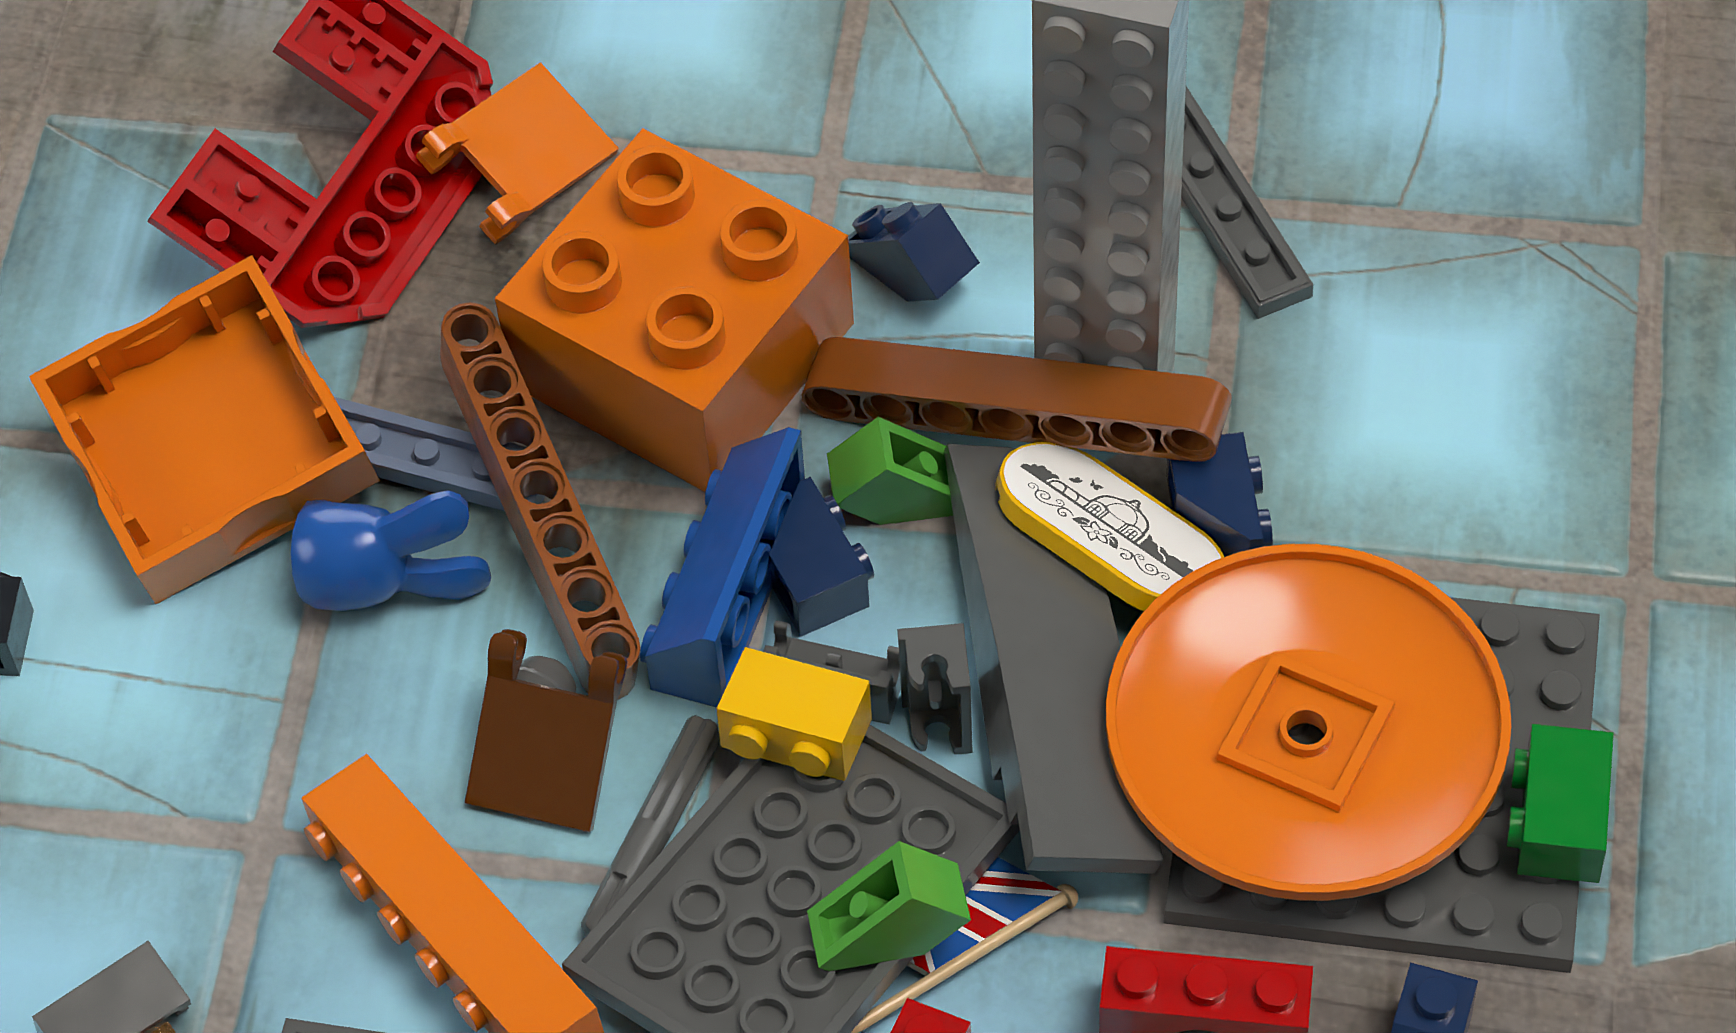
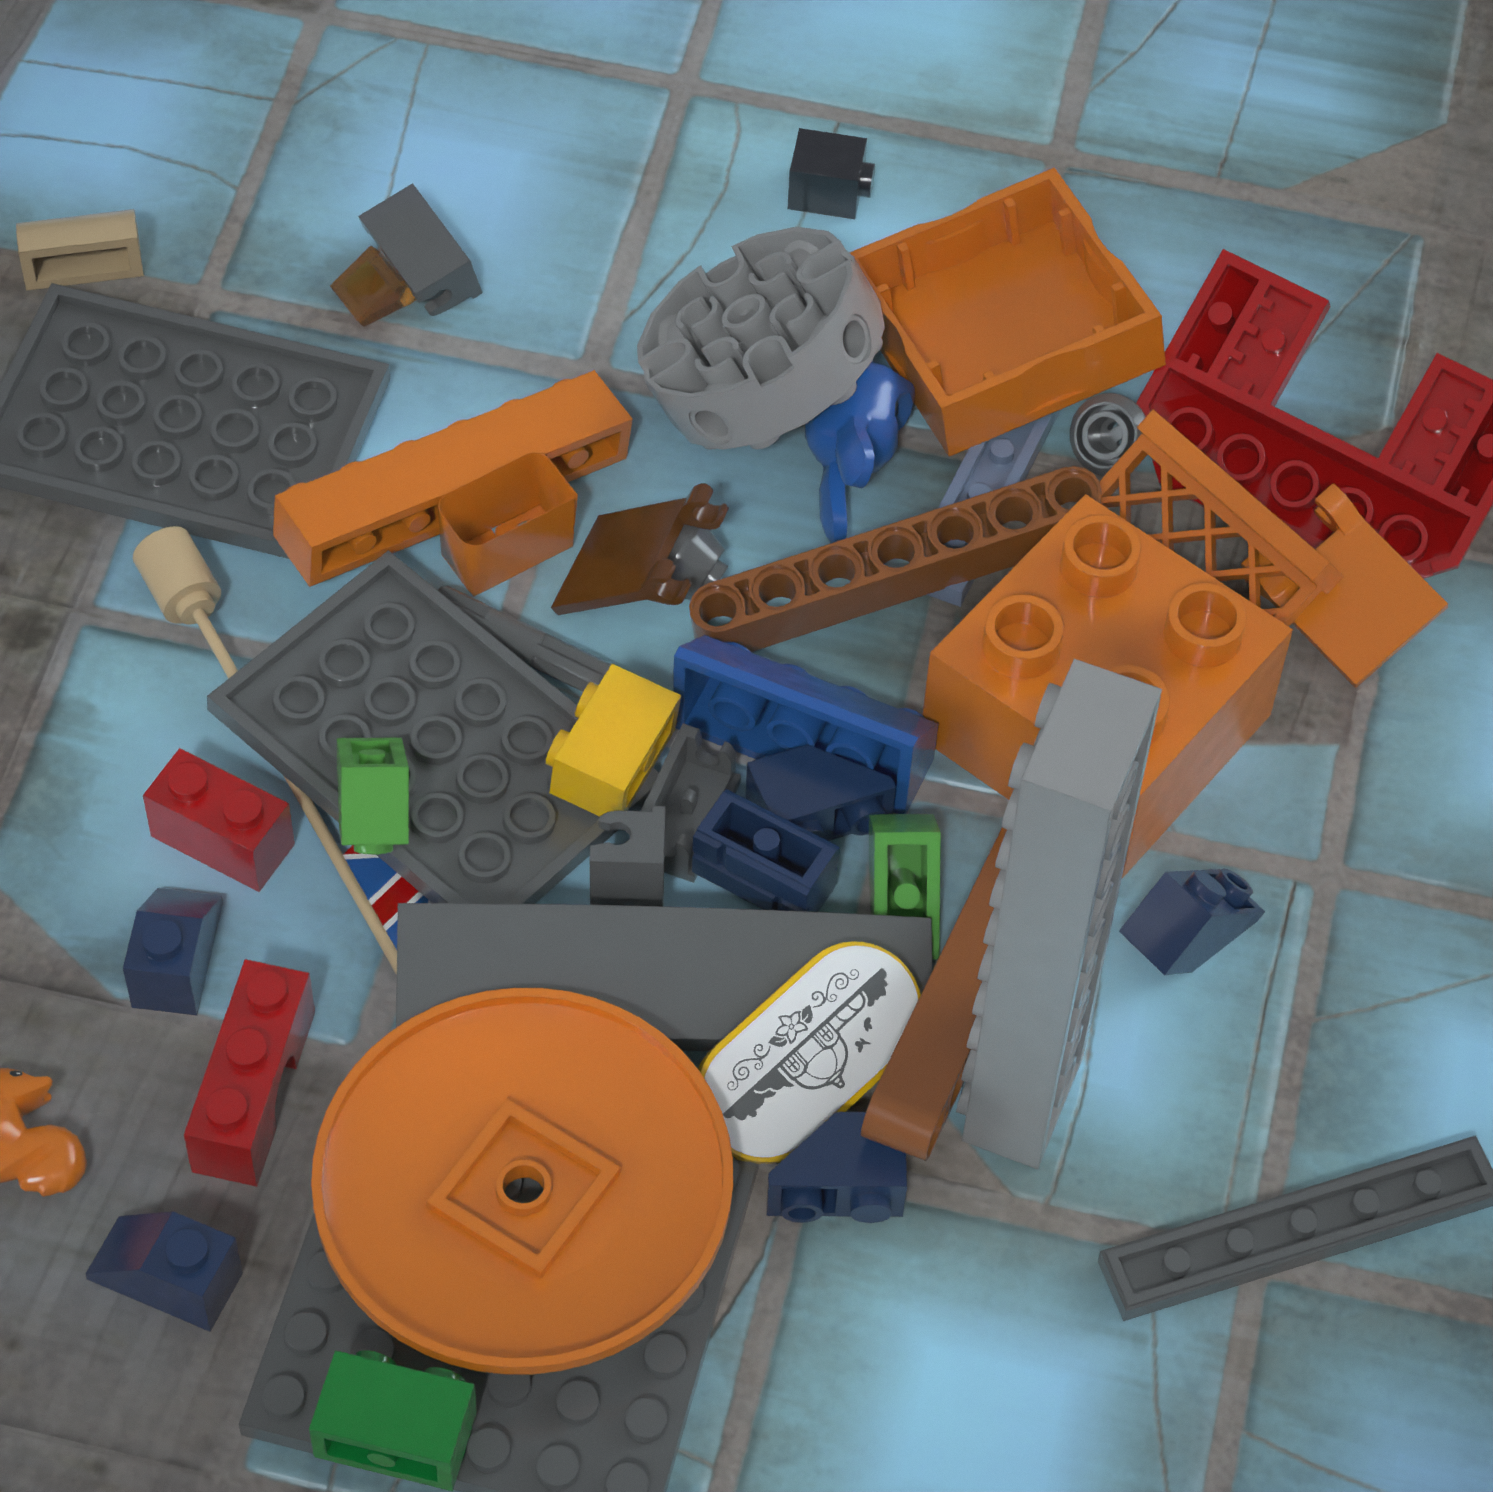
camera: 90 degrees right, 0 degrees up
(210, 612) = (762, 339): none -> light grey brick
(347, 340) = (1093, 435): none -> dark grey cone
(441, 229) = (1231, 503): none -> orange fence
(475, 824) = (505, 497): none -> orange piece
(901, 579) = (764, 857): none -> dark blue brick

